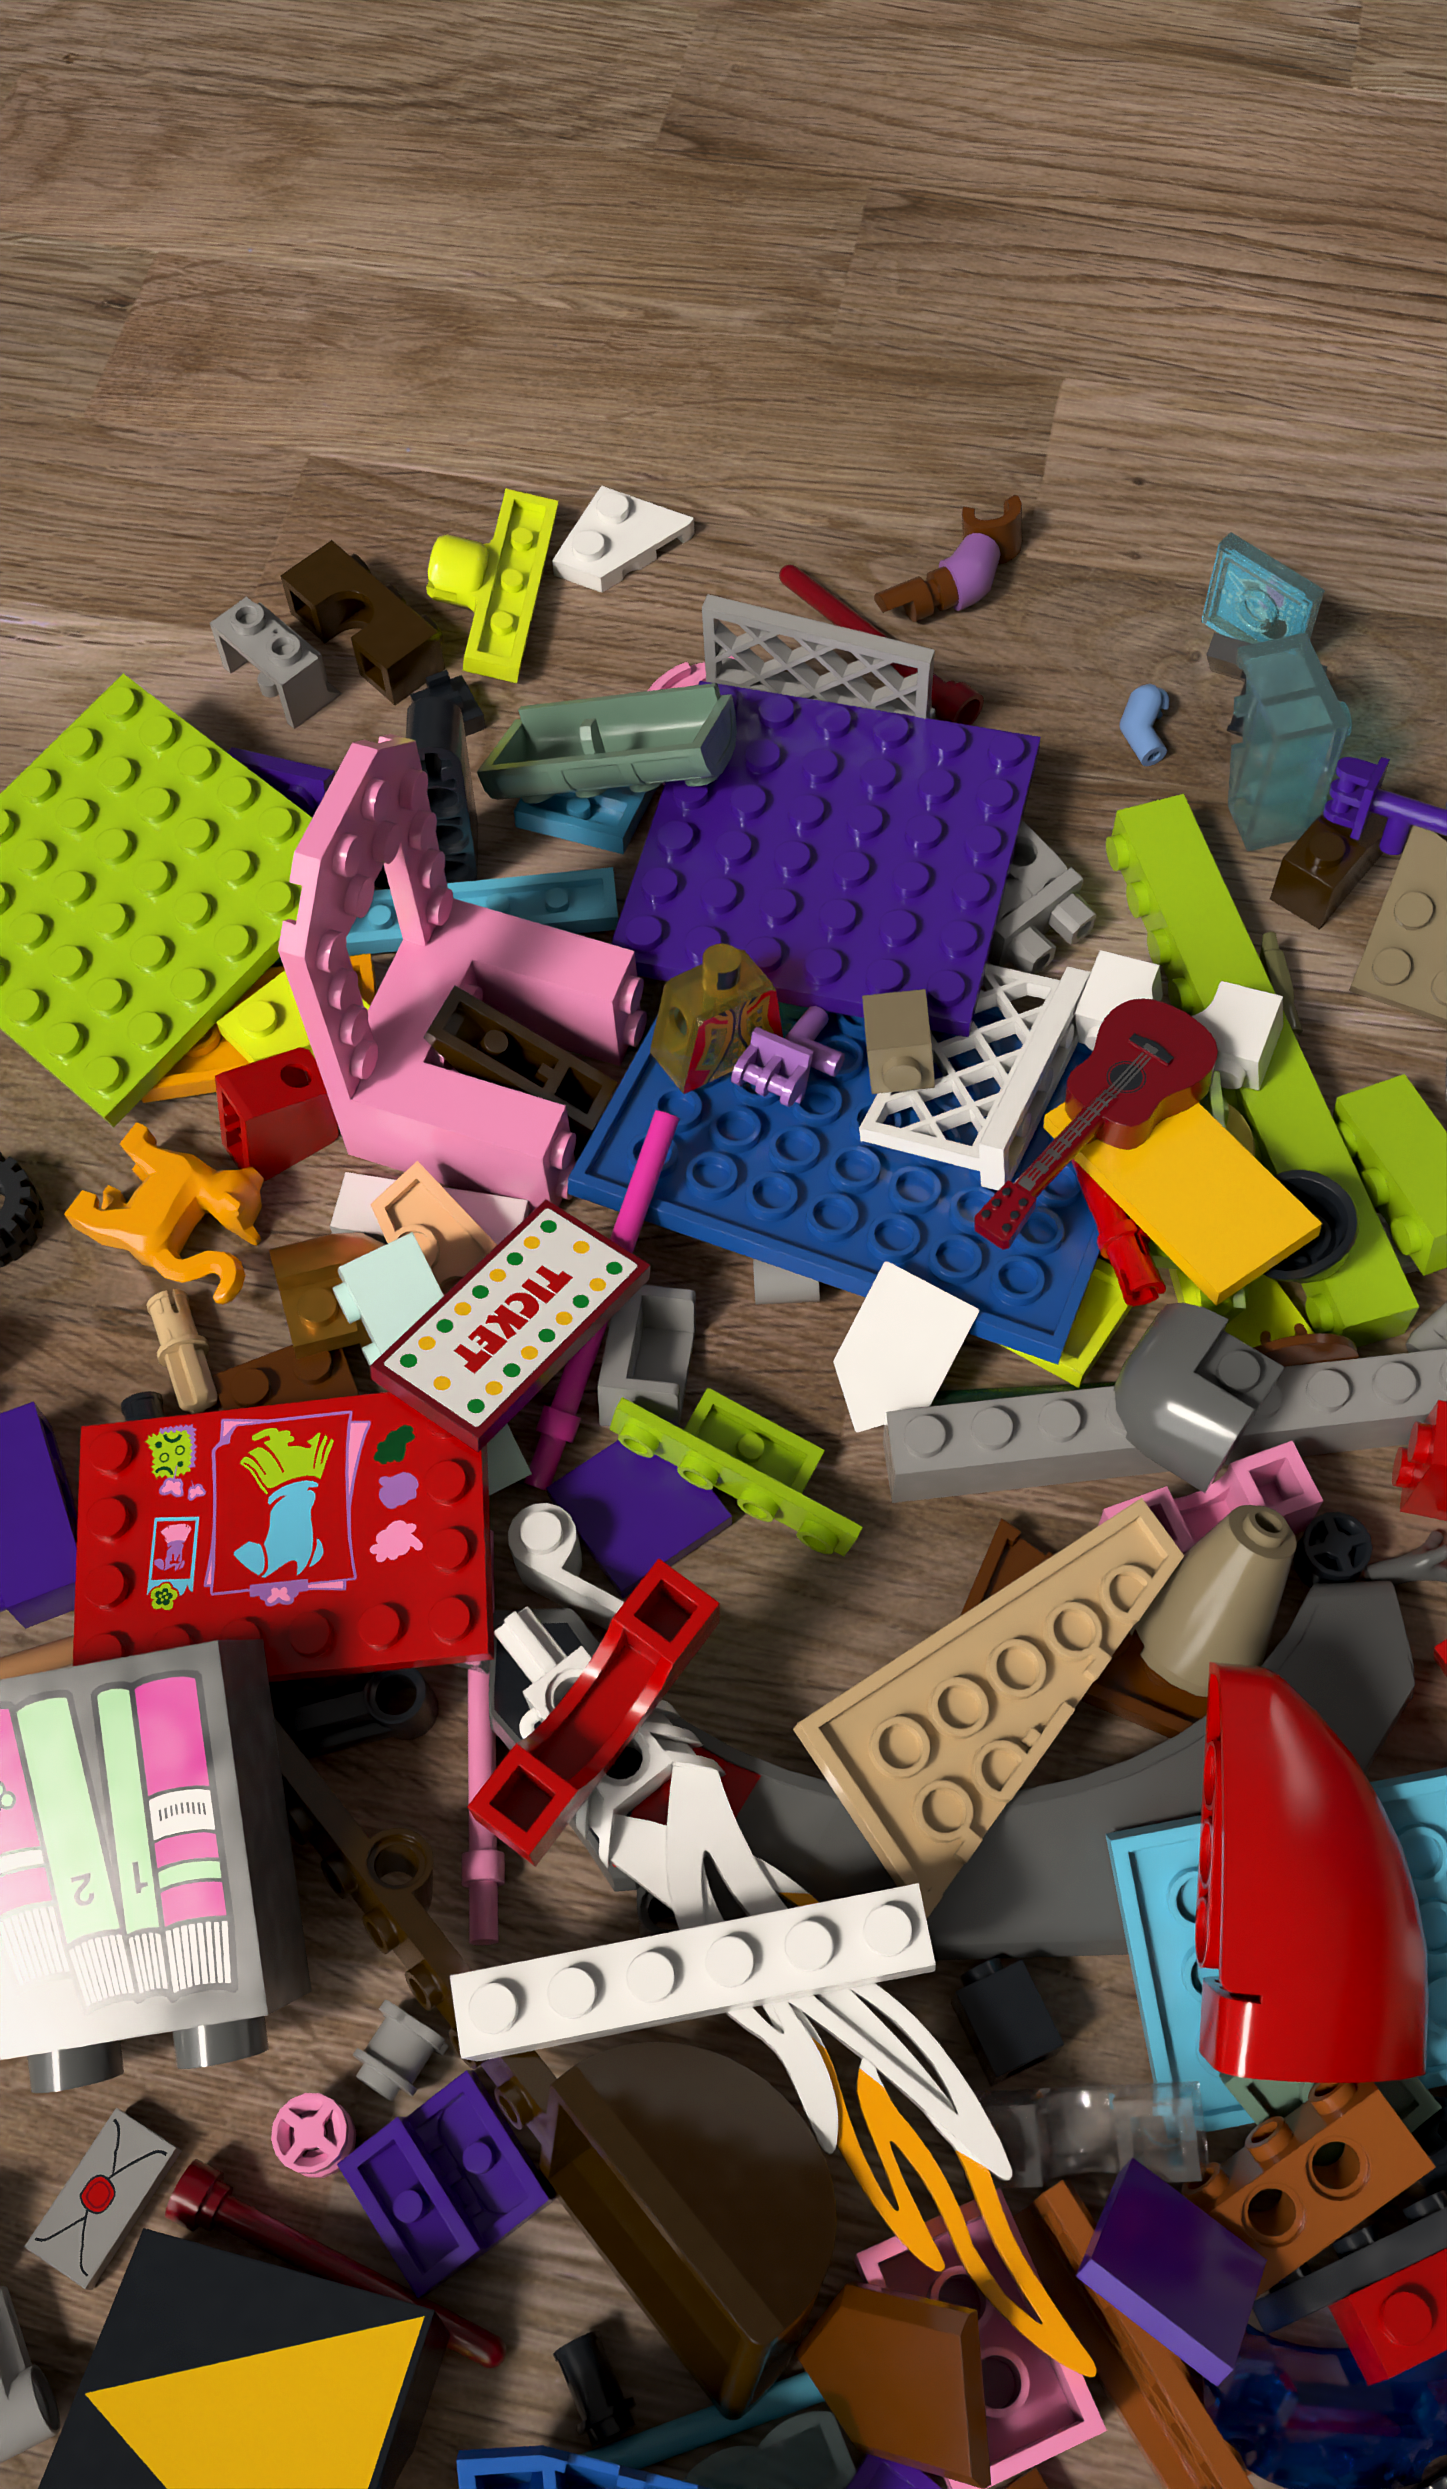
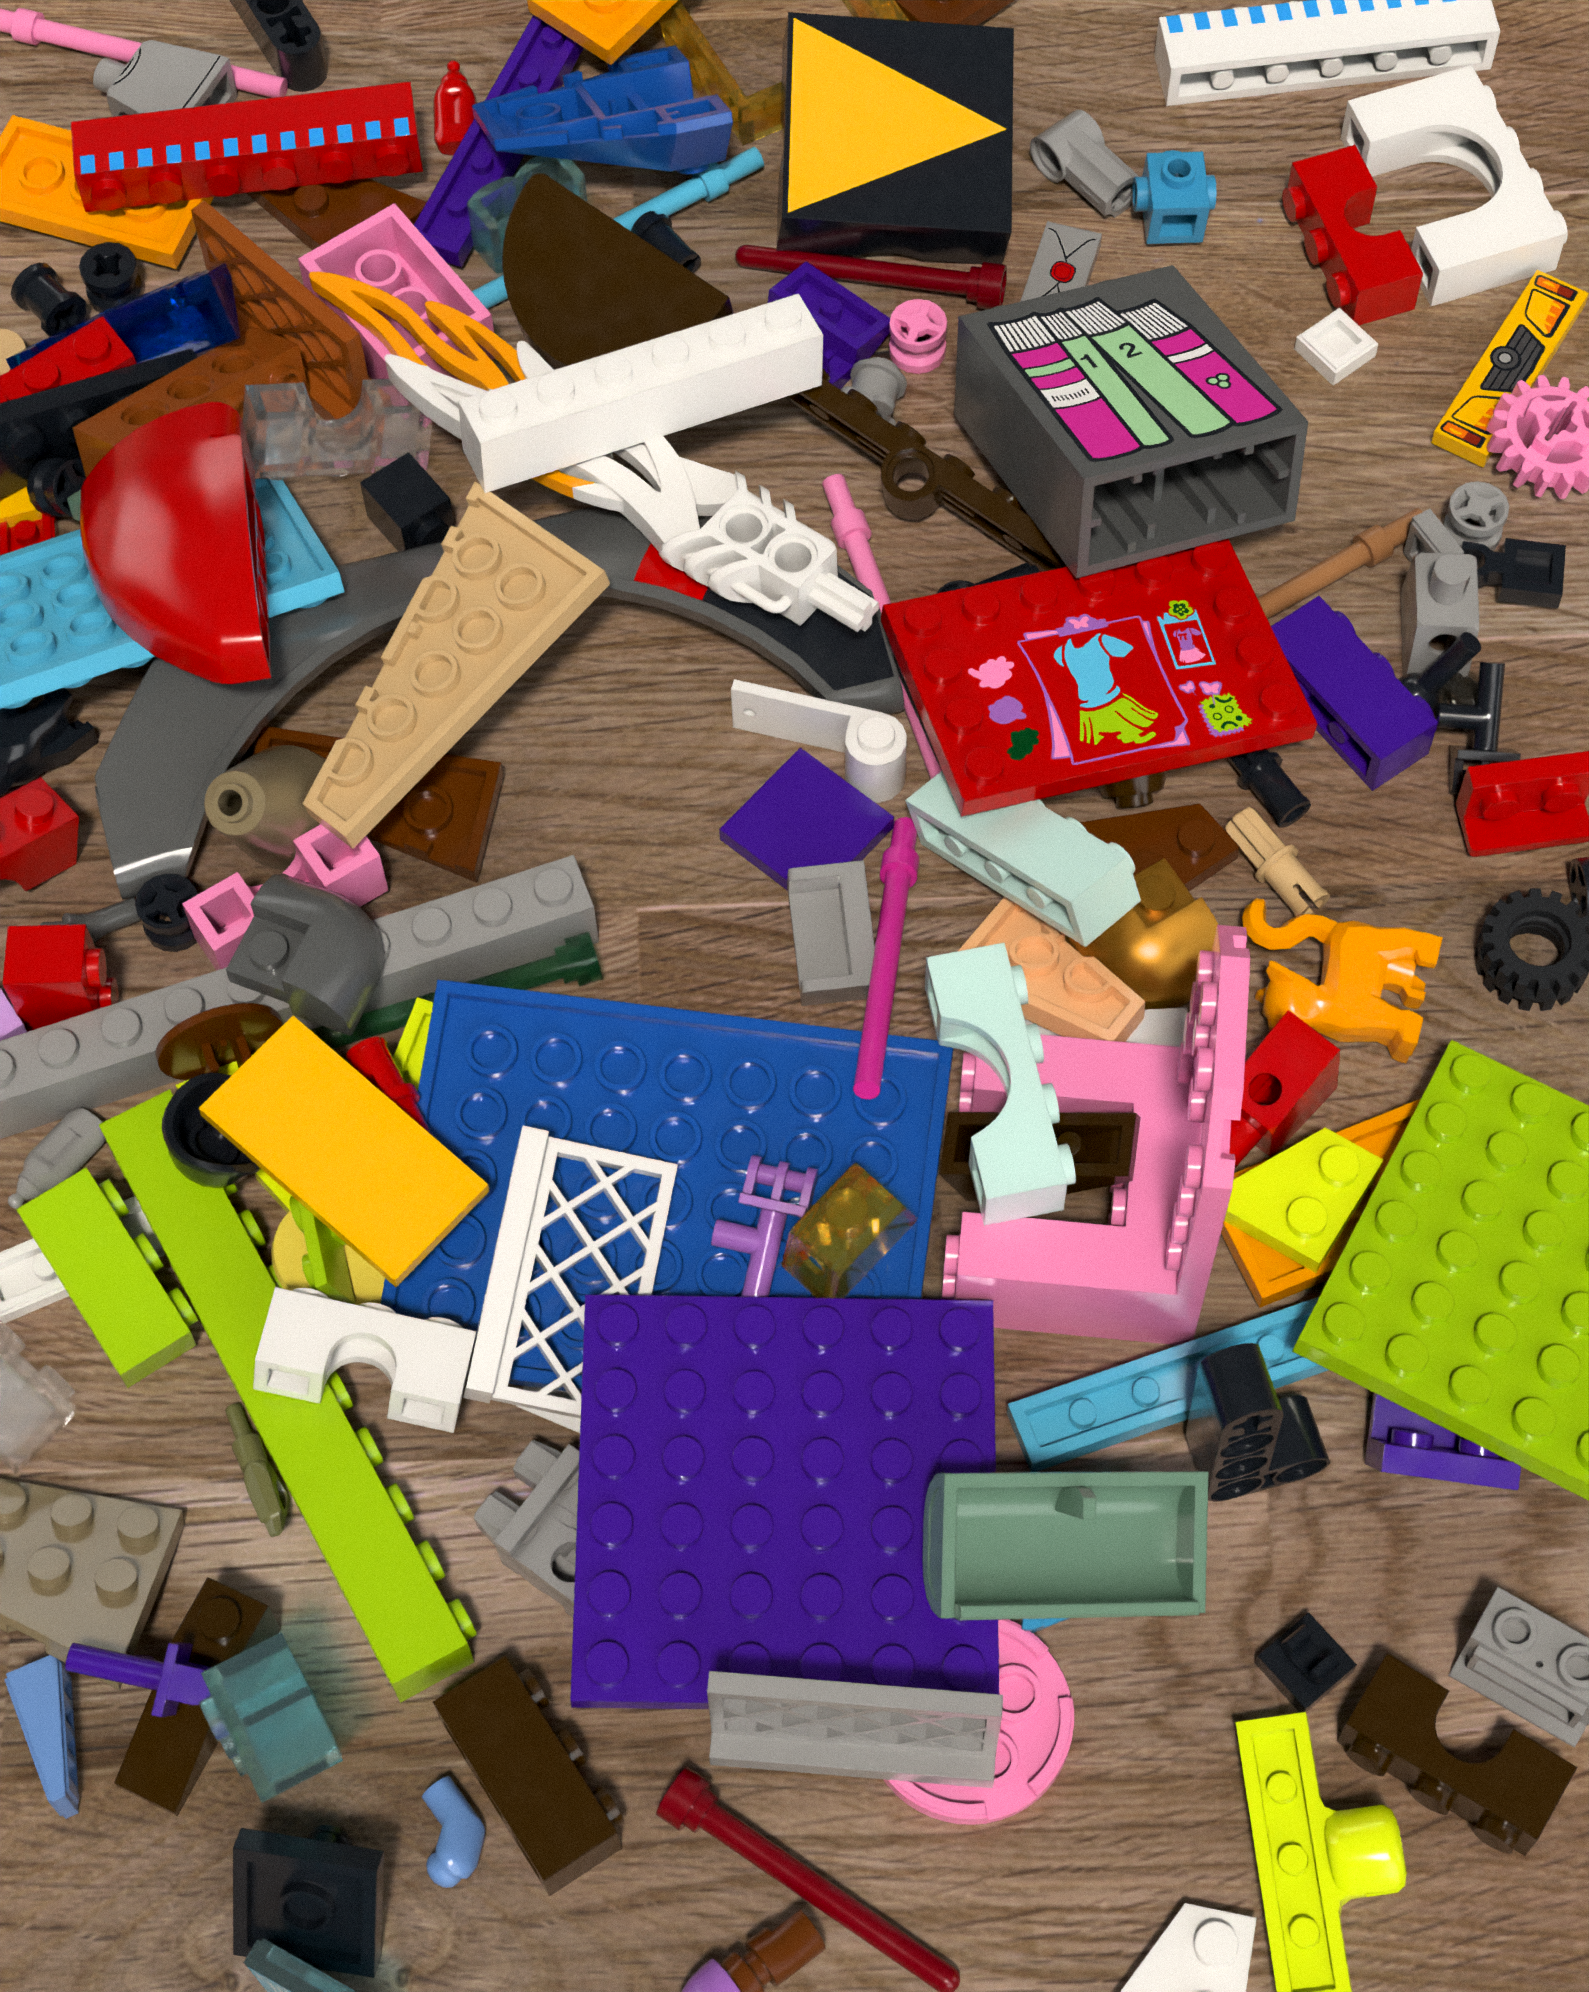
camera: 165 degrees right, 0 degrees up
(510, 1324) = (950, 852): tile -> none
(538, 1146) = (978, 1009): none -> light aqua arch
(570, 1752) = (791, 463): red arch -> none
(744, 1458) = (718, 863): lime bracket -> none
(898, 1041) = (655, 1246): dark tan brick -> none
(899, 1346) = (592, 967): white sticker -> none
(903, 2379) = (440, 245): reddish brown tile -> none
(1081, 738) = (531, 1773): none -> dark brown brick
(1141, 1071) = (393, 1233): dark red piece -> none
(1173, 2271) = (260, 312): dark purple tile -> none

